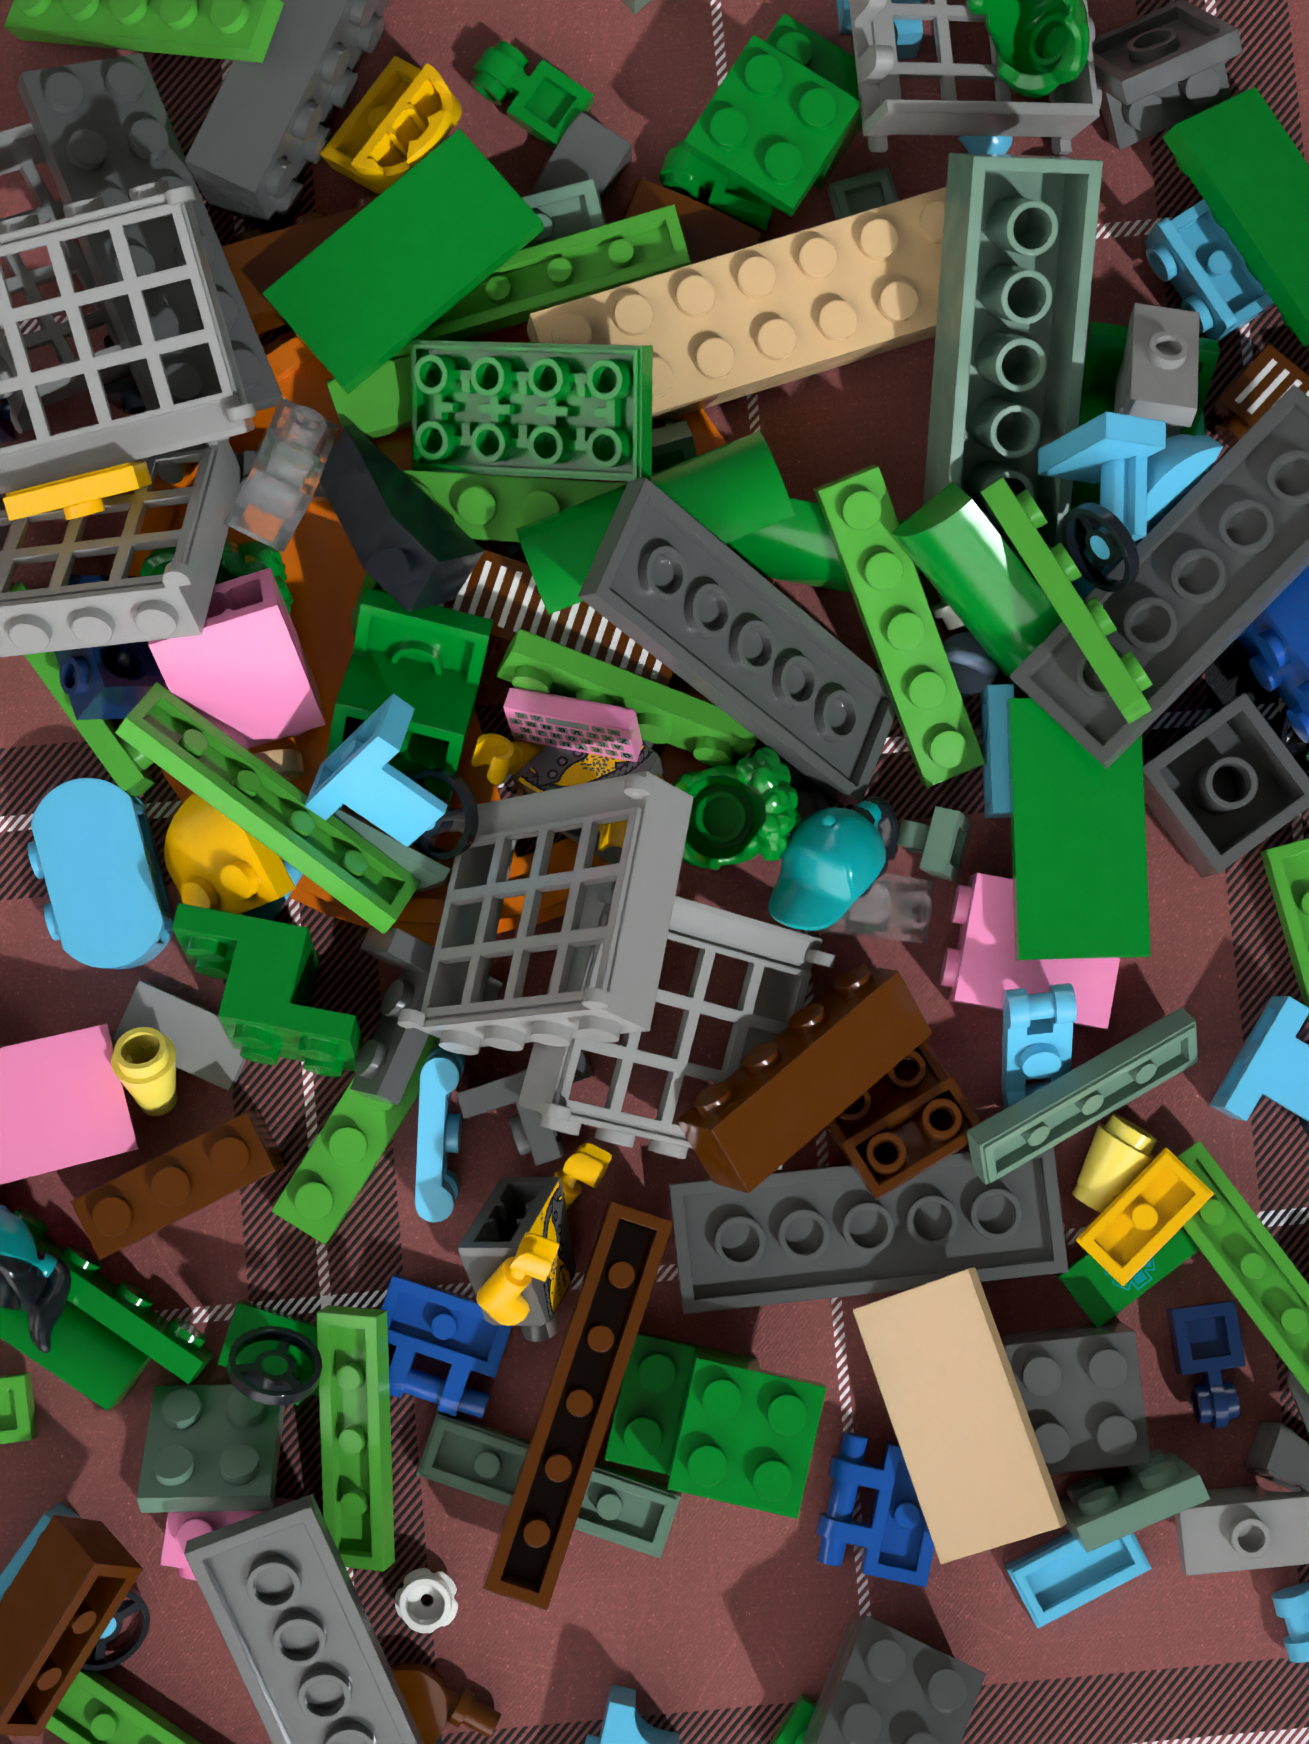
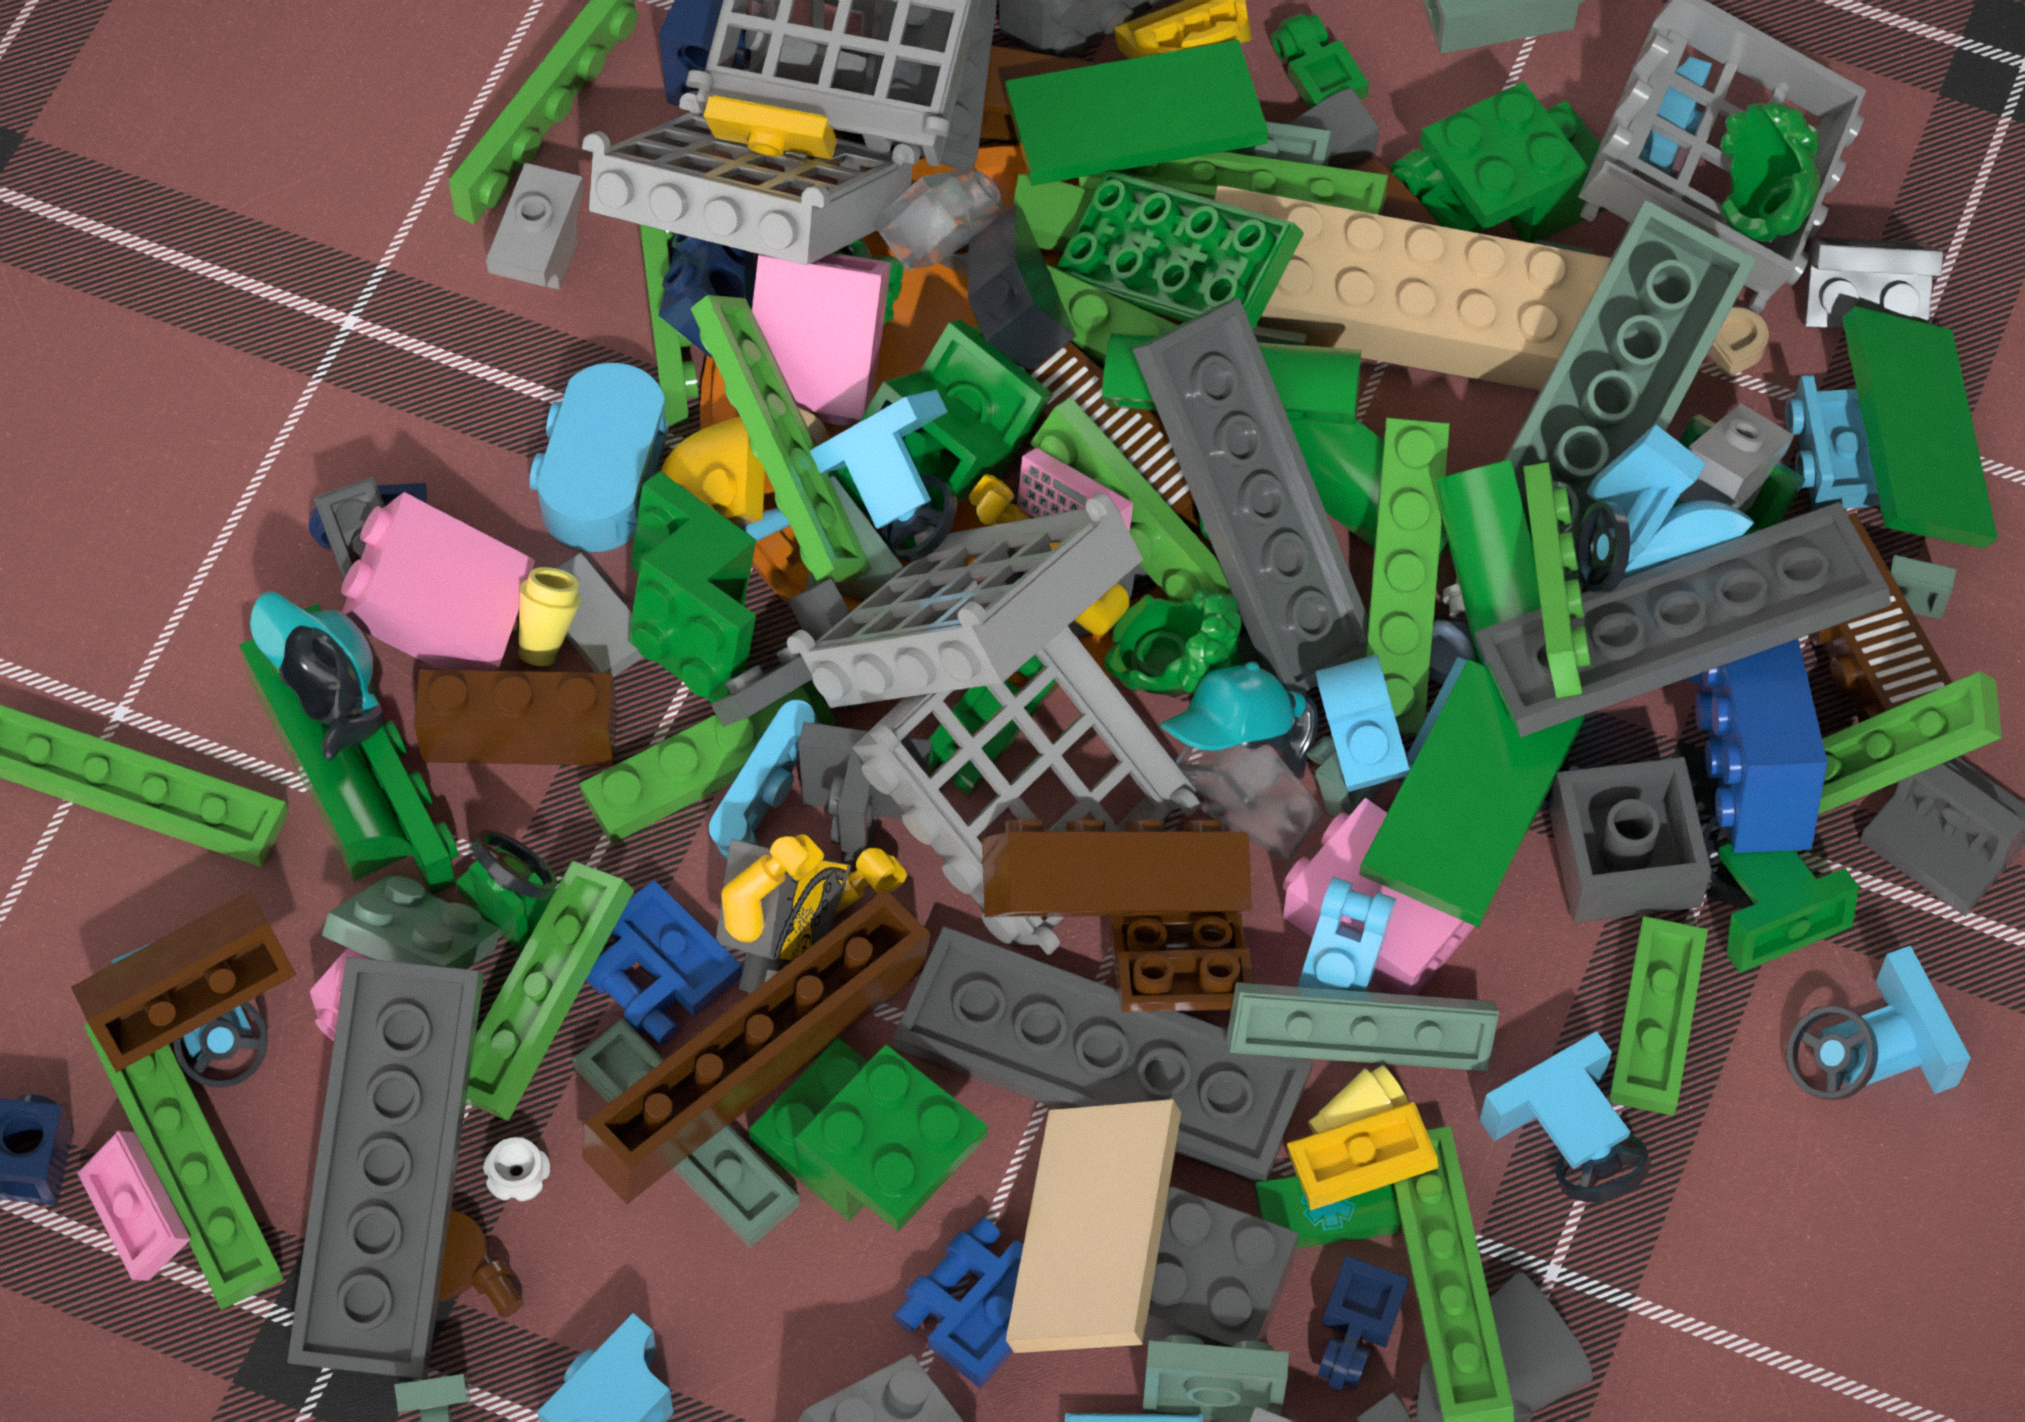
camera: 25 degrees right, 25 degrees down
(941, 804) = (1362, 722): none -> medium azure brick

